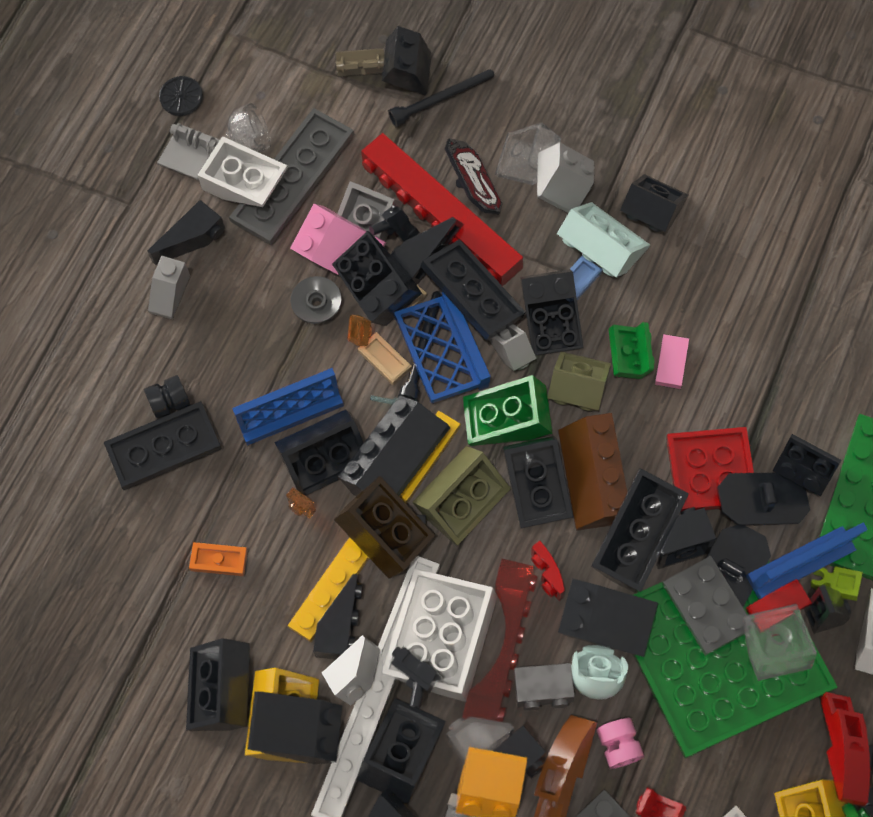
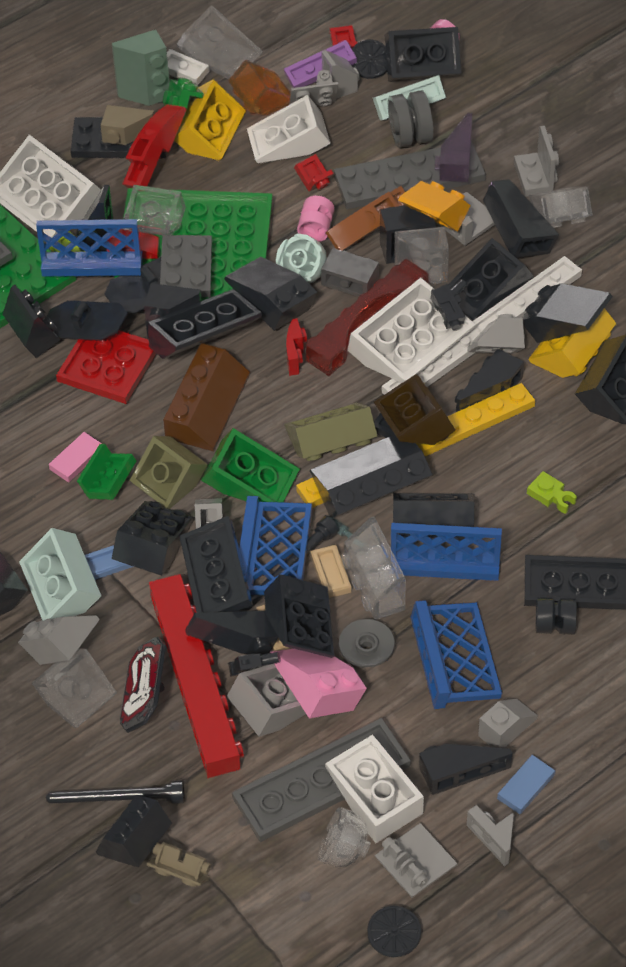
camera: 155 degrees left, 15 degrees down
(132, 248) = (526, 784): none -> medium blue tile
(137, 190) = (494, 836): none -> light grey slope
(218, 559) = (571, 471): orange plate -> none
(231, 533) = (550, 490): none -> lime plate
(251, 312) = (433, 660): none -> blue fence
(300, 504) = (475, 480): clear orange plate -> none
(351, 370) = (375, 570): none -> clear slope
(359, 330) = (341, 593): clear orange plate -> none
(537, 481) = (259, 412): black slope -> none

